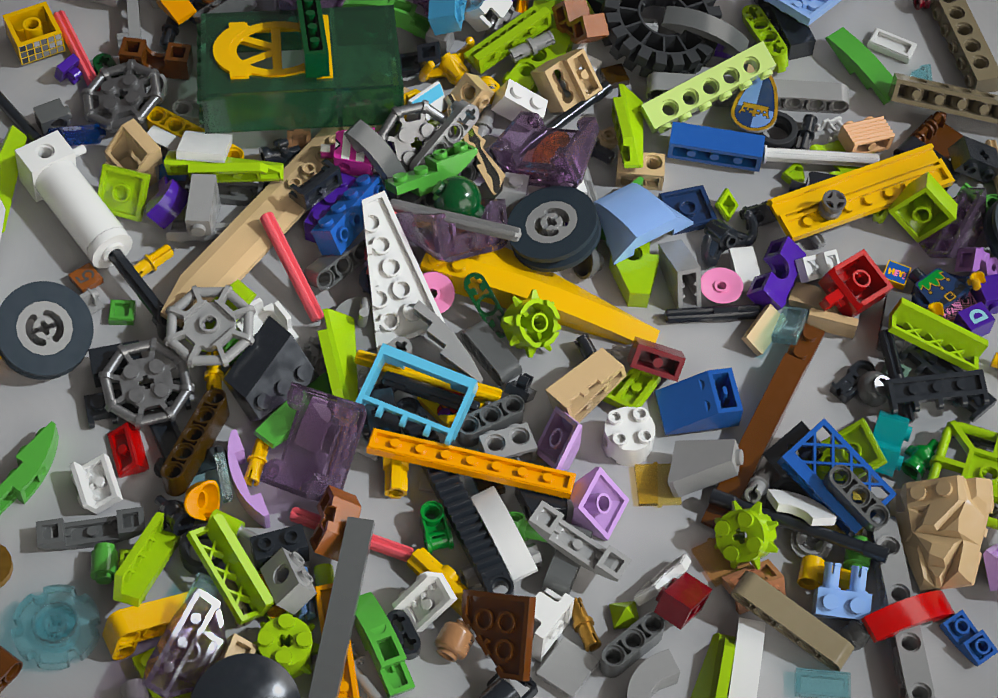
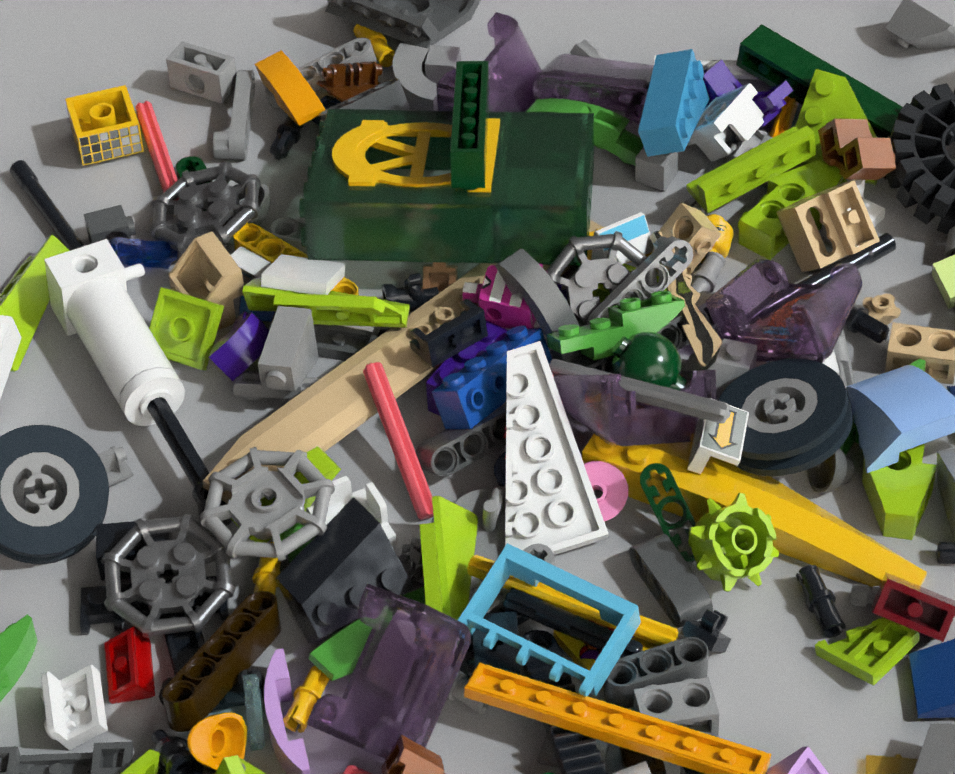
camera: 15 degrees right, 10 degrees down
(69, 70) = (142, 173): dark purple tile -> none
(85, 278) = (115, 433): dark orange tile -> none
(122, 312) = (155, 484): bright green tile -> none
(154, 260) = (211, 420): yellow axle -> none
(174, 63) = (282, 174): reddish brown arch -> none
(395, 478) = (504, 738): yellow piece -> none
(414, 61) = (616, 194): black slope -> none
(450, 66) = (664, 197): yellow piece -> none
(453, 350) = (612, 568): light grey slope -> none
(513, 252) = (718, 440): none -> panel
(514, 98) = (750, 242): white brick -> none
(531, 46) = (783, 179): light grey pin -> none
(560, 440) = (755, 707): lavender slope -> none
(586, 384) = (802, 635): tan wedge -> none
(615, 75) = (902, 228): dark brown tile -> none
(628, 127) = (912, 293): lime wedge -> none
(628, 435) = (860, 711): white brick -> none

